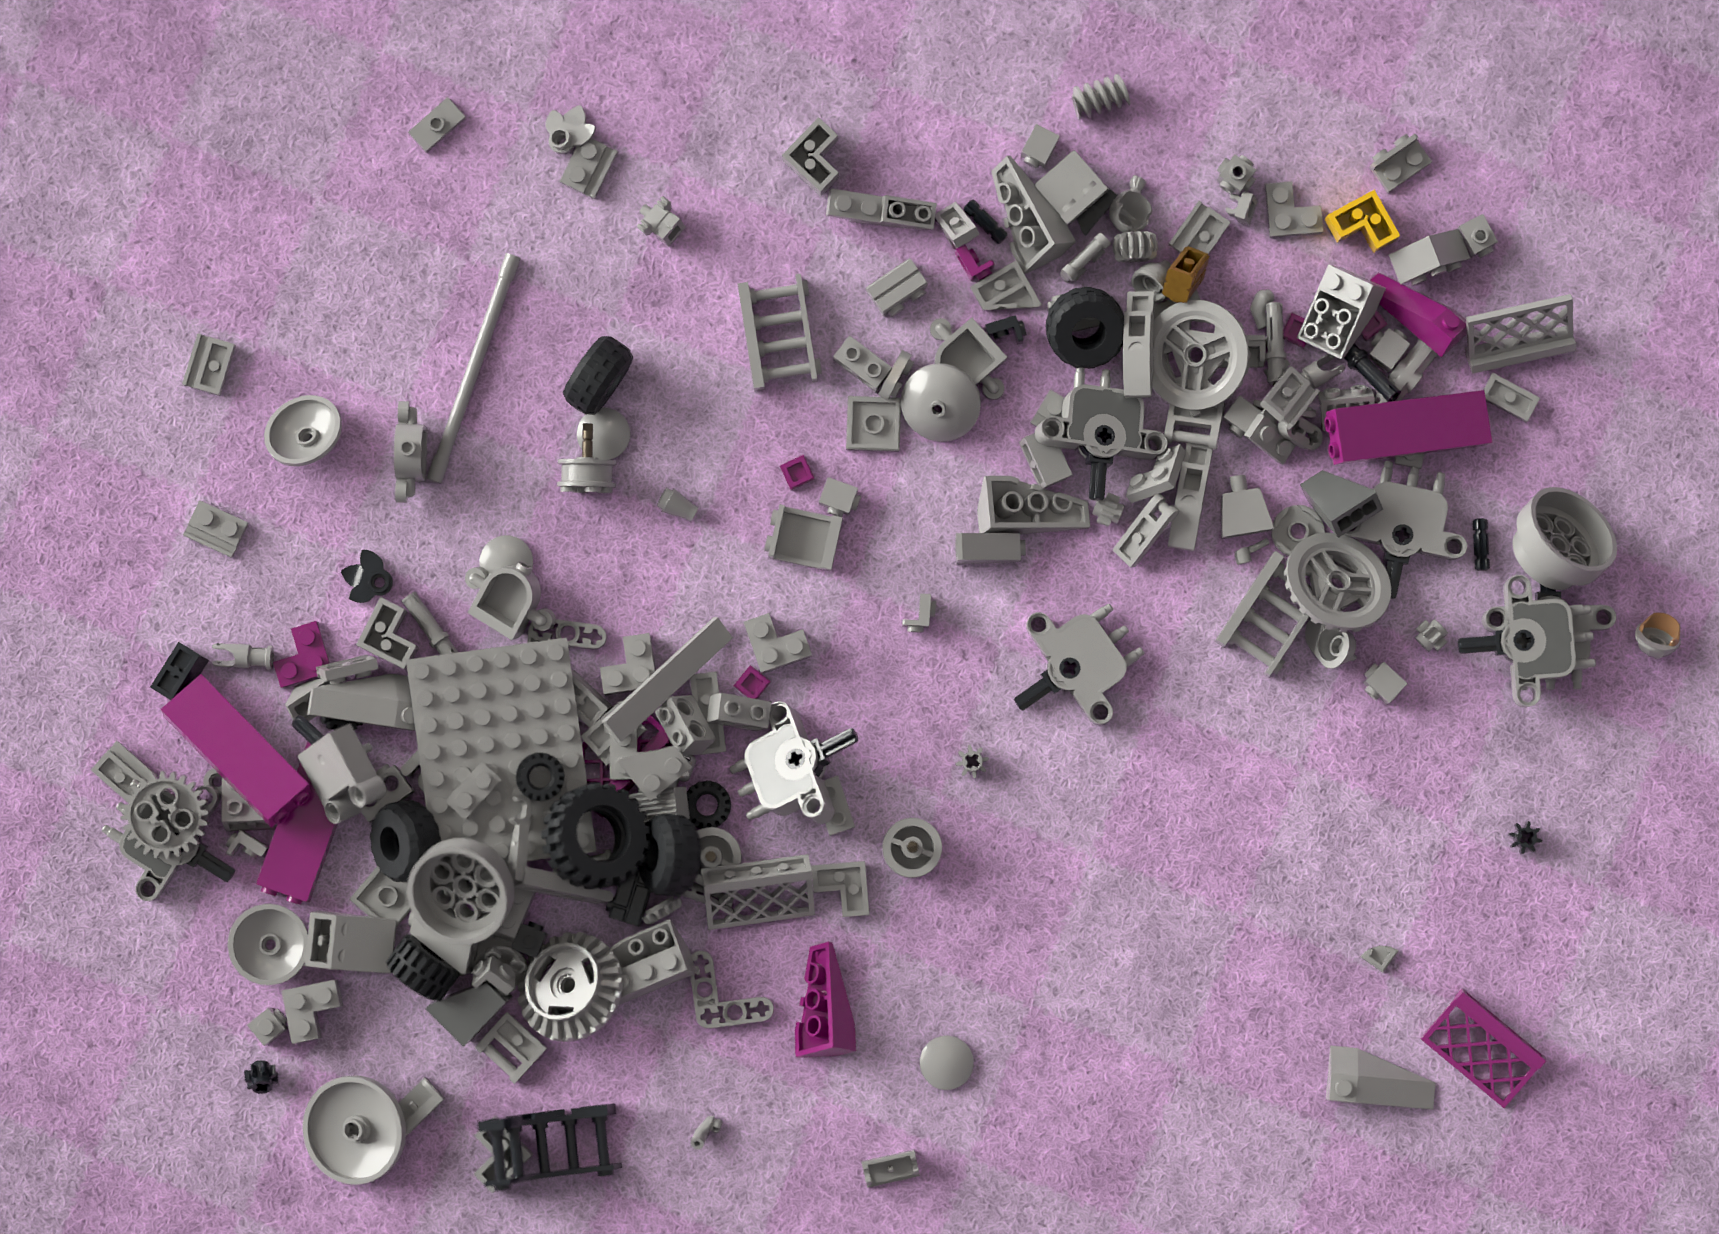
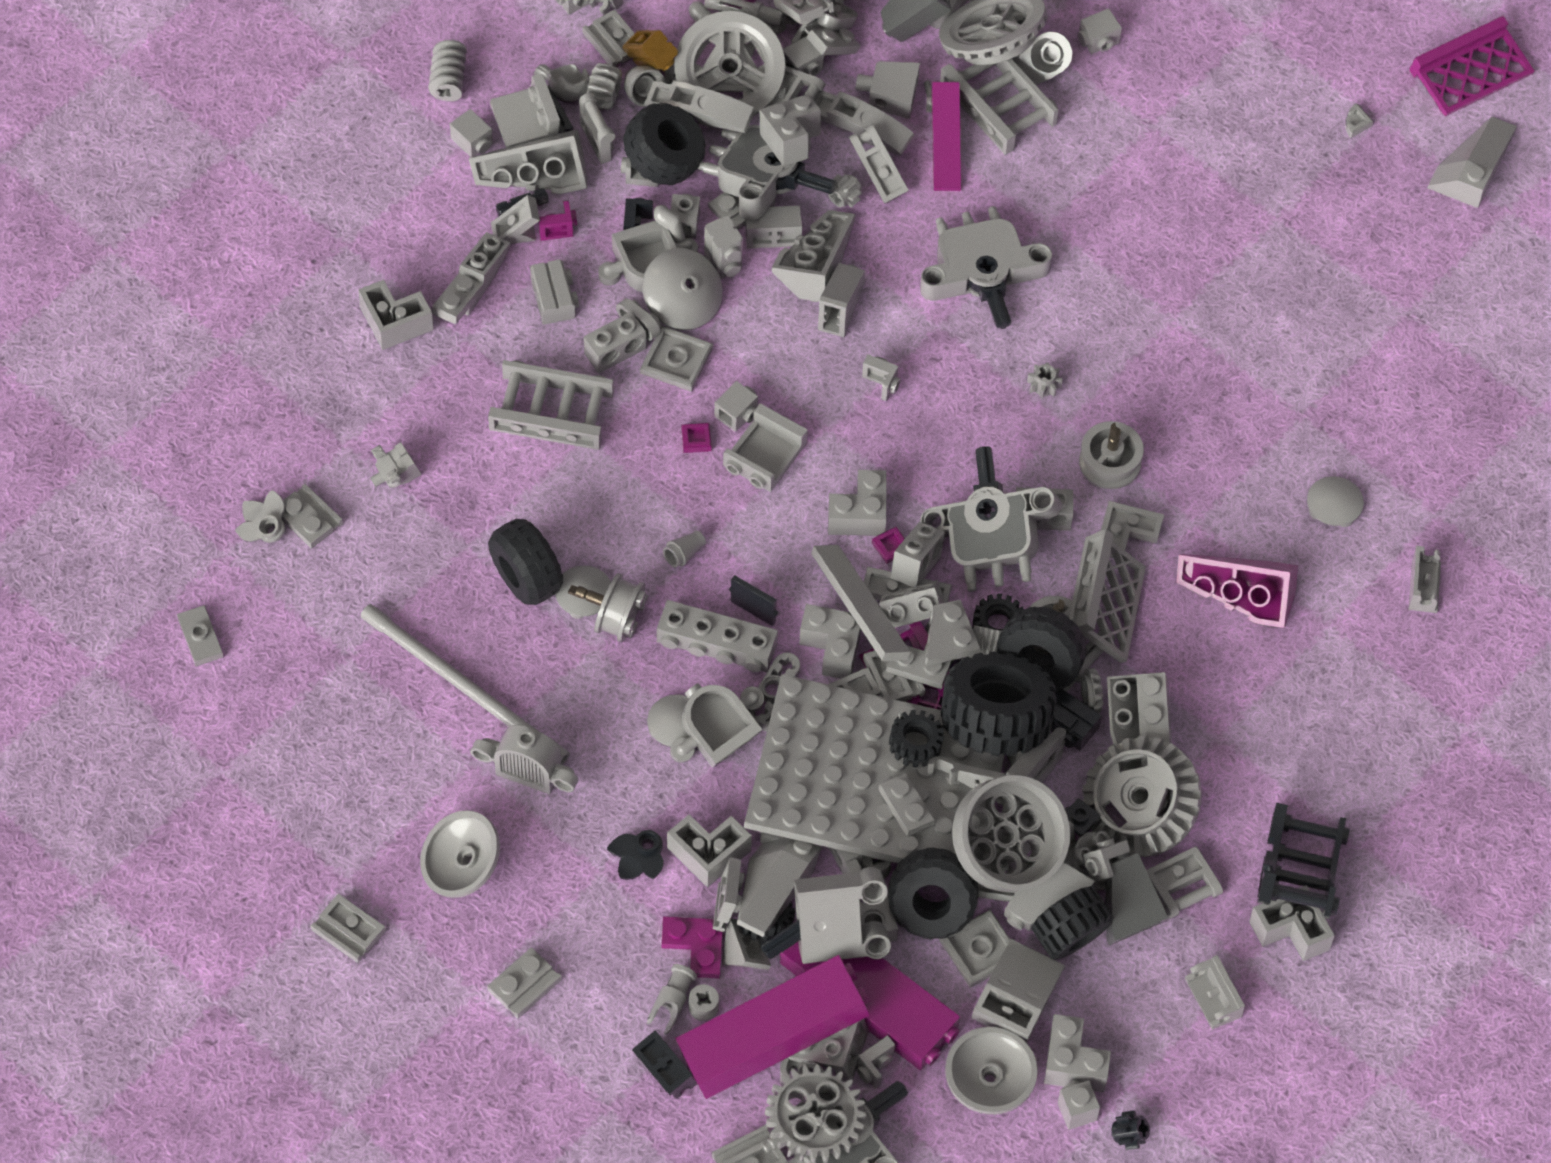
camera: 70 degrees left, 25 degrees down
(254, 685) = (701, 1009): none -> light grey wheel
(354, 1129) = (1220, 1053): light grey dish -> none
(438, 638) = (710, 812): light grey pin -> none
(598, 566) = (717, 636): none -> light grey brick
(640, 585) = (753, 600): none -> black piece
(701, 1133) = (1331, 735): light grey arm -> none
(712, 1001) = (1203, 684): light grey beam -> none
(995, 424) = (723, 246): none -> light grey brick
(1002, 364) = (671, 221): none -> light grey arm
(1005, 290) = (596, 206): light grey wing -> none
(1025, 373) = (688, 210): none -> light grey brick
(1141, 432) = (789, 127): none -> light grey brick
(1161, 478) = (835, 139): light grey plate -> none
(1204, 581) = (946, 136): none -> magenta slope
(1287, 518) = (929, 68): light grey tile -> none

